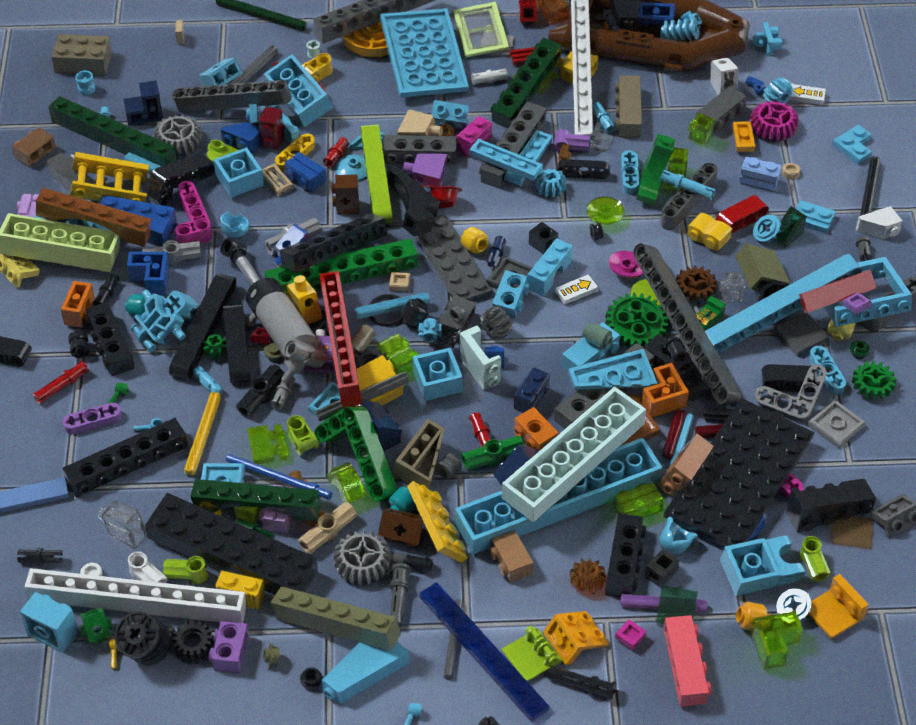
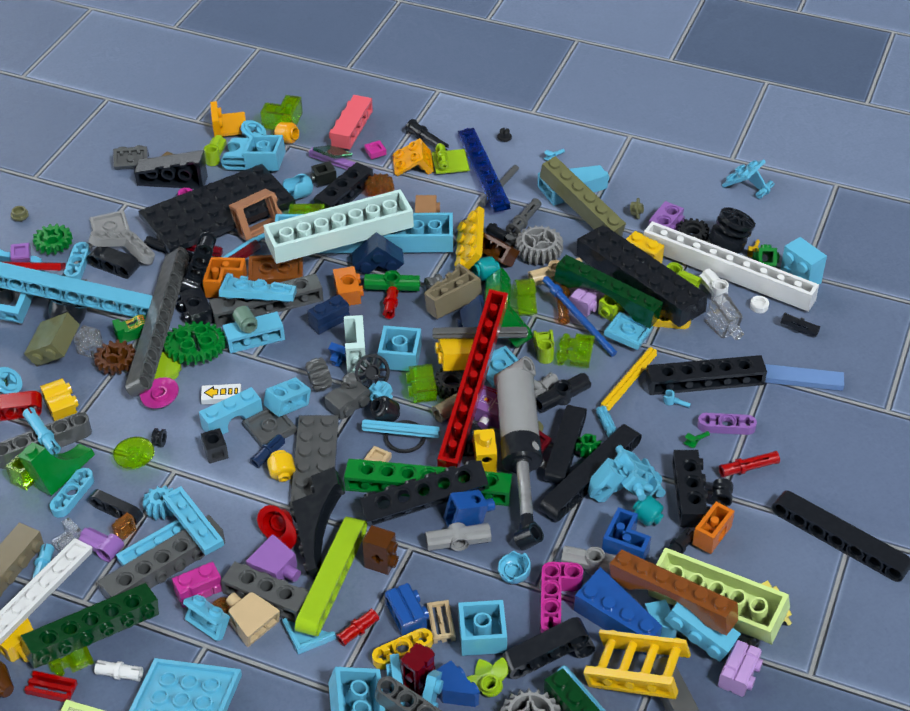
camera: 155 degrees left, 5 degrees down
(308, 673) = (613, 190): black plate -> none
(352, 165) = (342, 615): medium azure dish -> none

